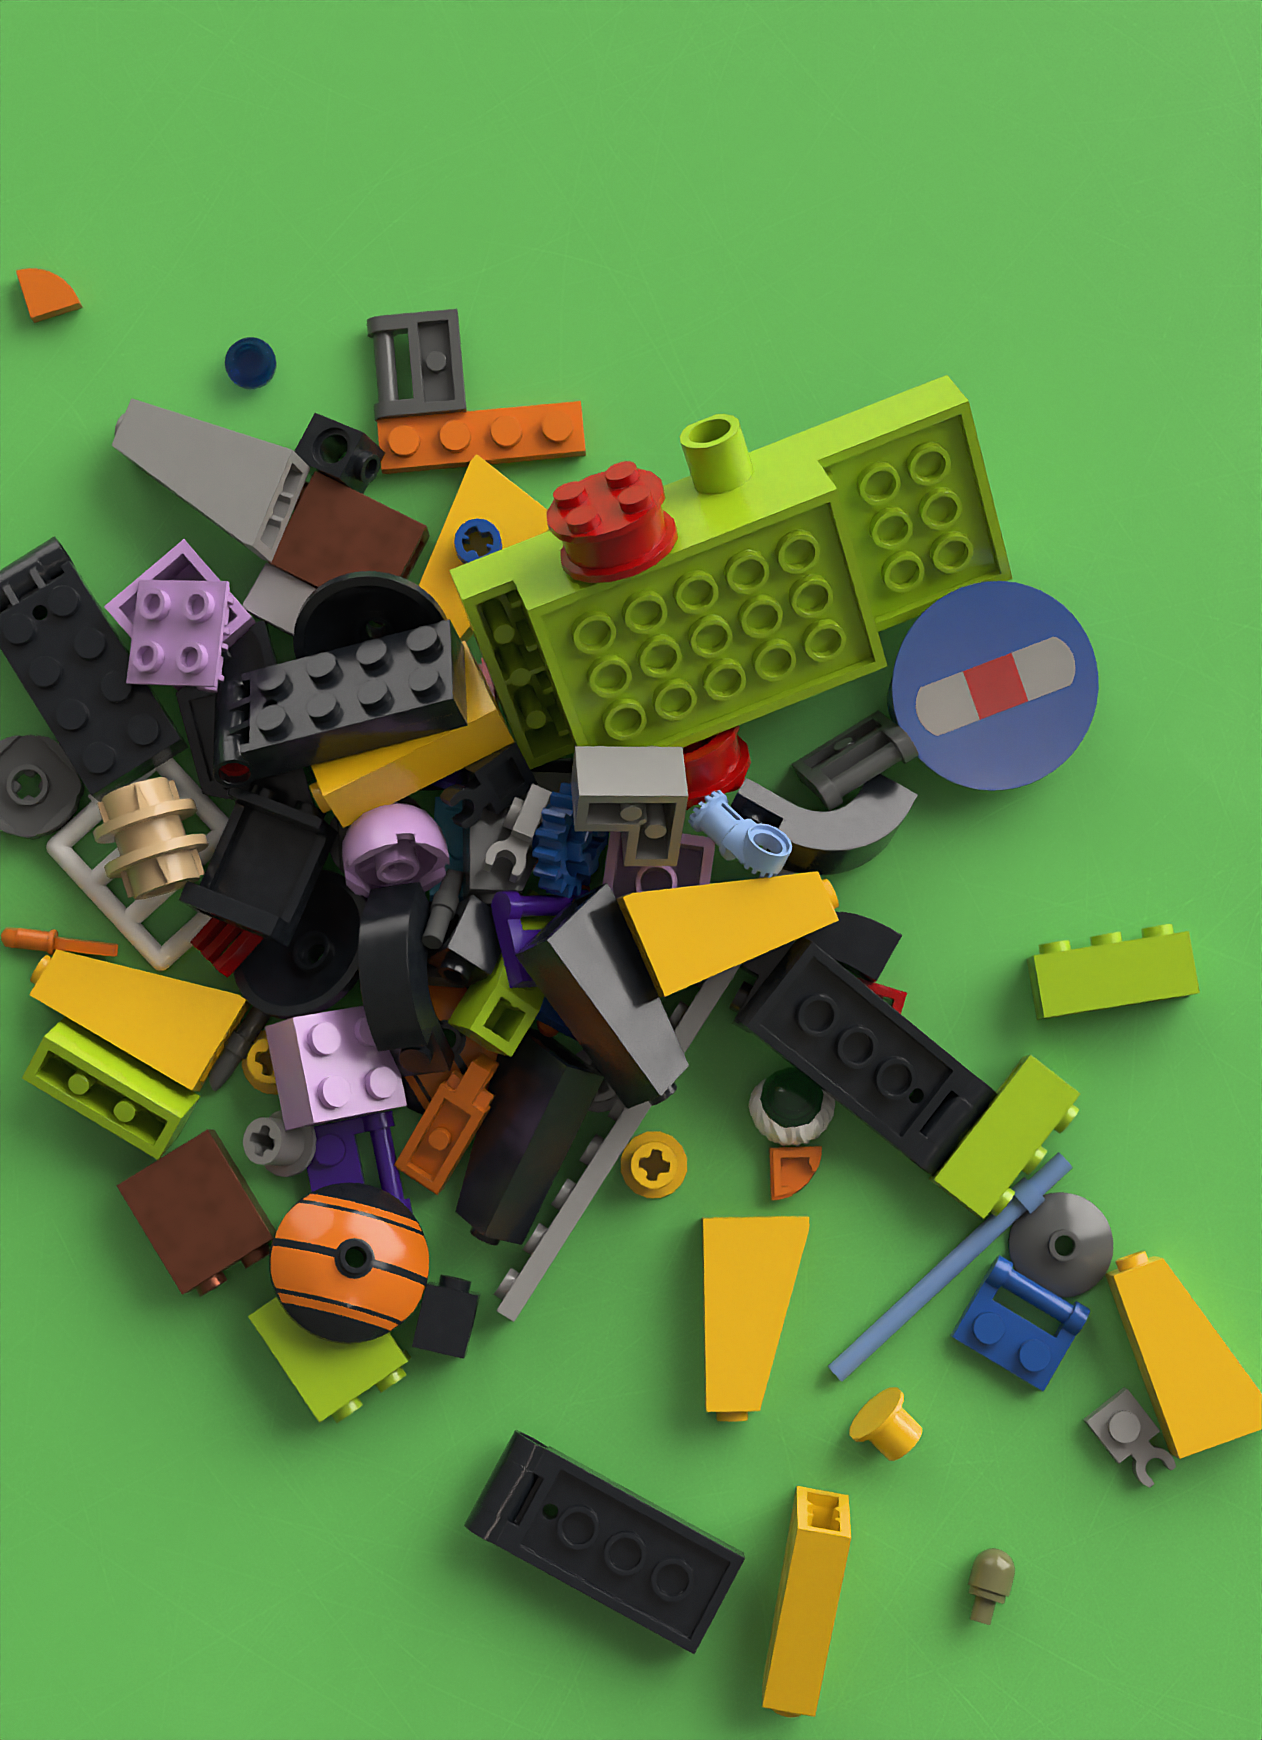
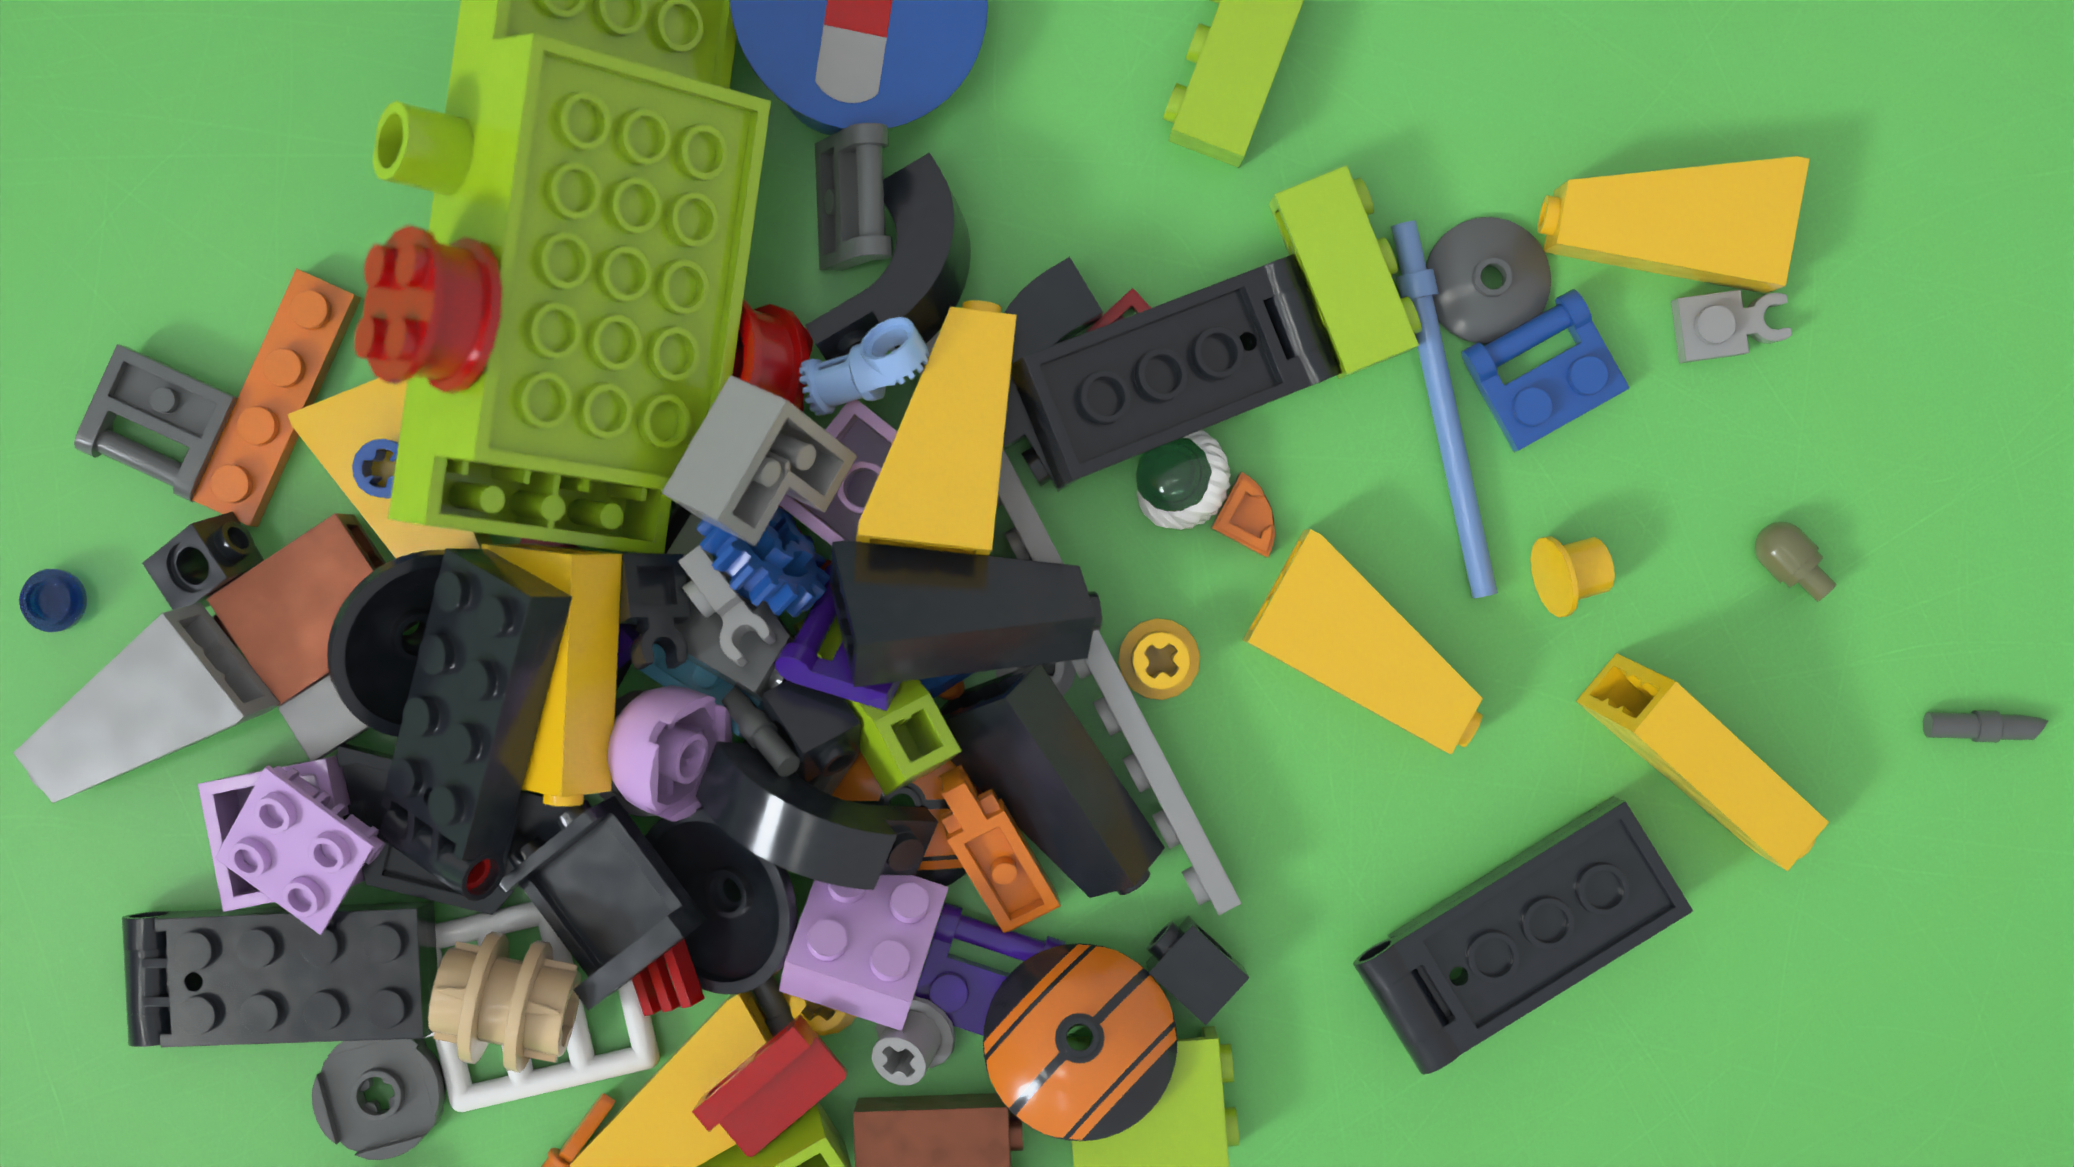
camera: 55 degrees left, 5 degrees up
(194, 1062) = (772, 1087): none -> red panel

